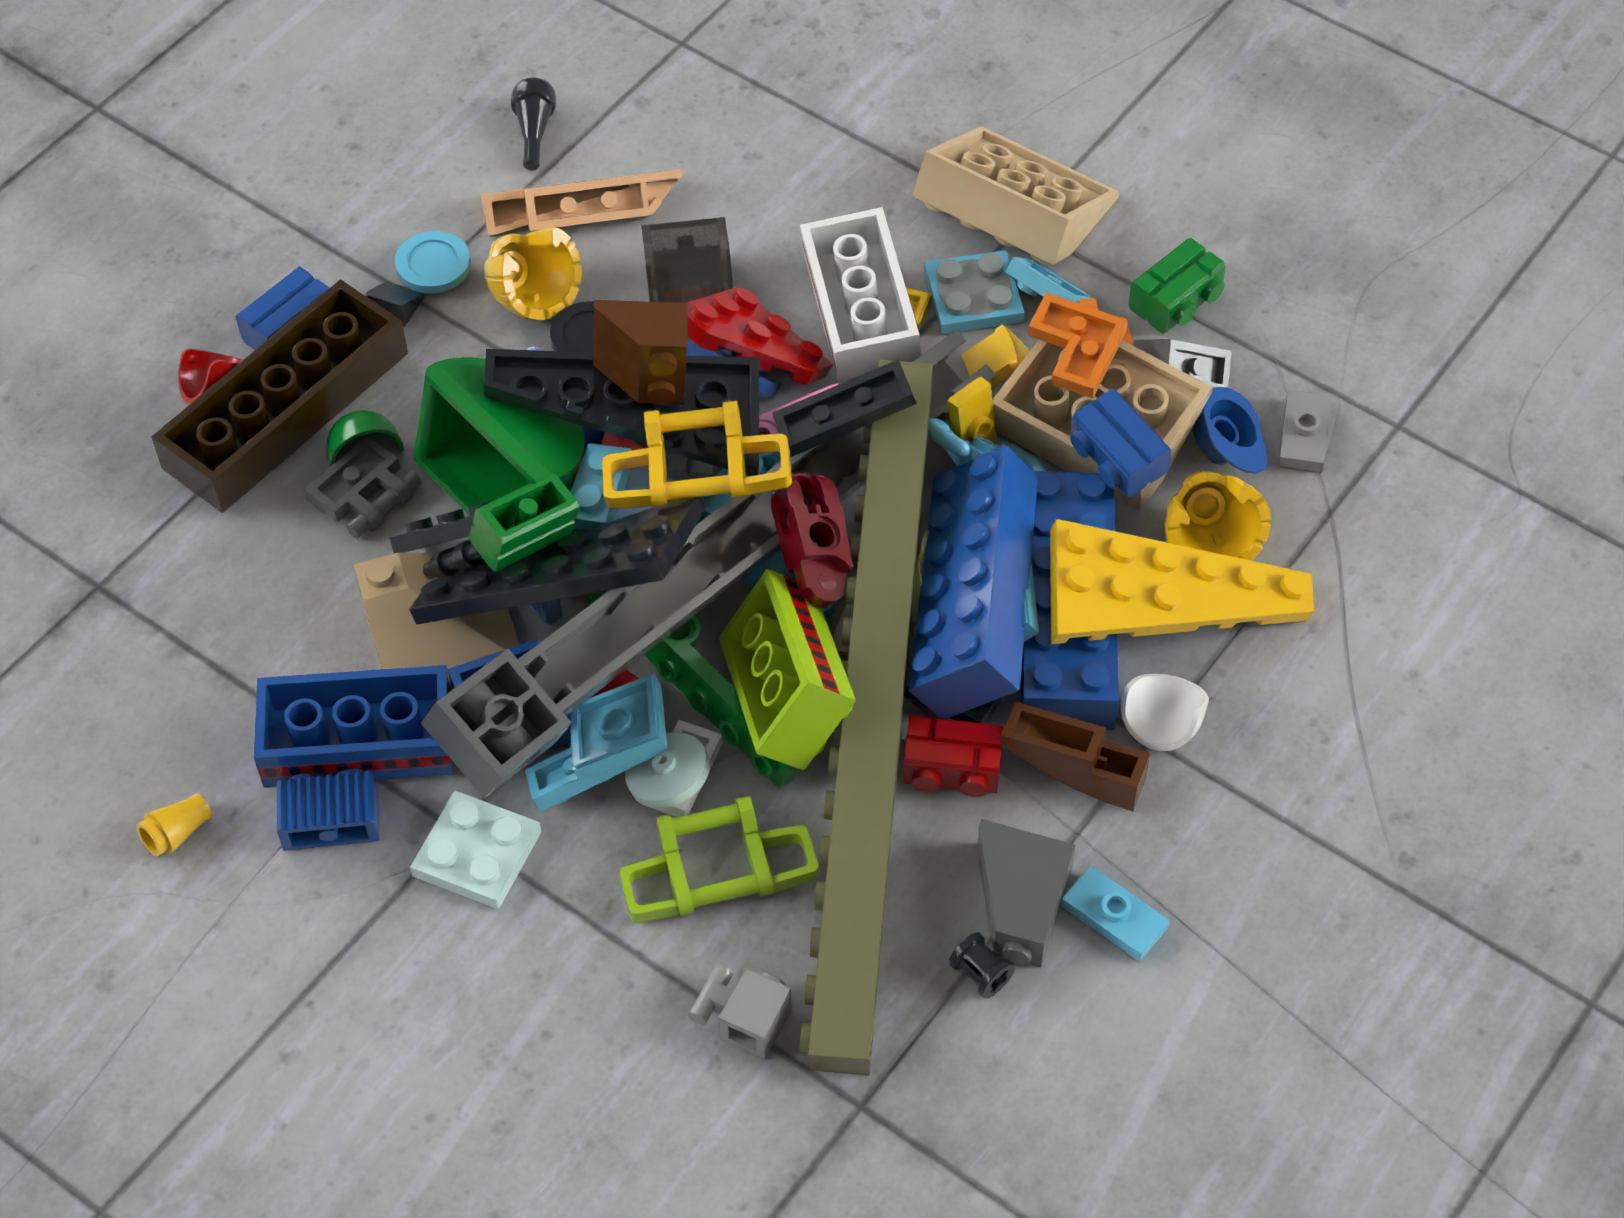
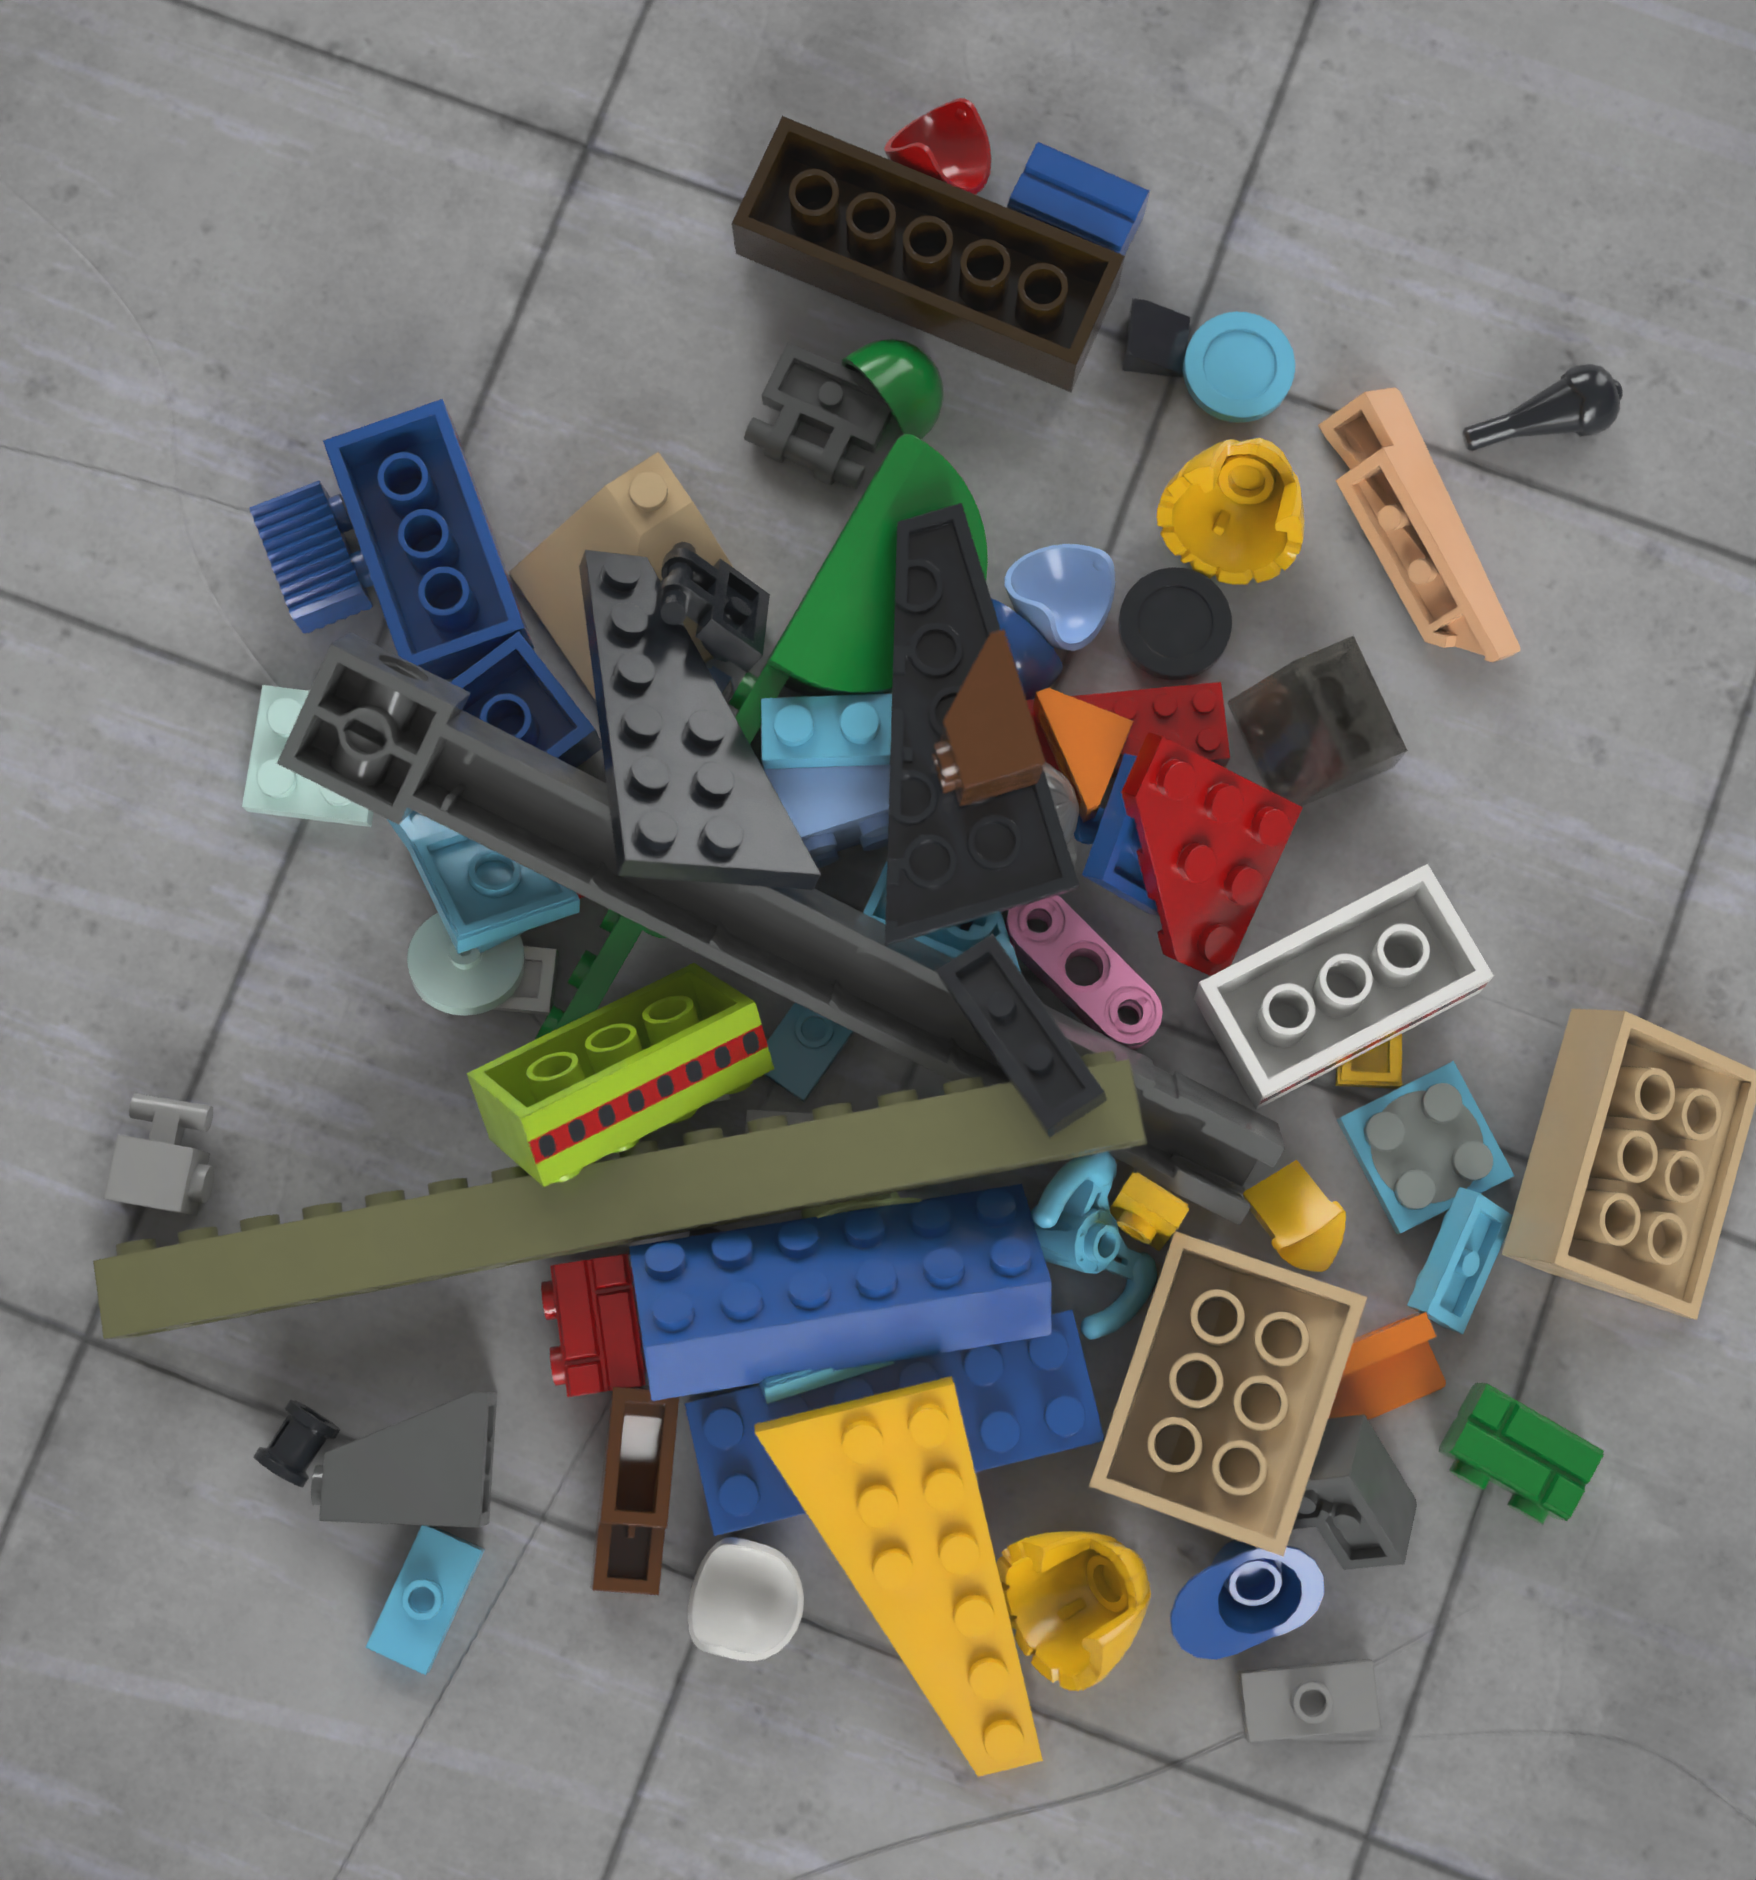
camera: 75 degrees right, 25 degrees up
(171, 825) = (249, 378): yellow cone -> none
(423, 533) = (747, 563): black plate -> none
(523, 521) = (704, 653): green brick -> none
(655, 457) = (798, 821): yellow bar -> none
(754, 841) = (306, 1040): lime bar -> none
(813, 510) = (773, 1081): dark red piece -> none
(1088, 340) = (1308, 1355): orange plate -> none
(1120, 443) = (1127, 1441): blue brick -> none

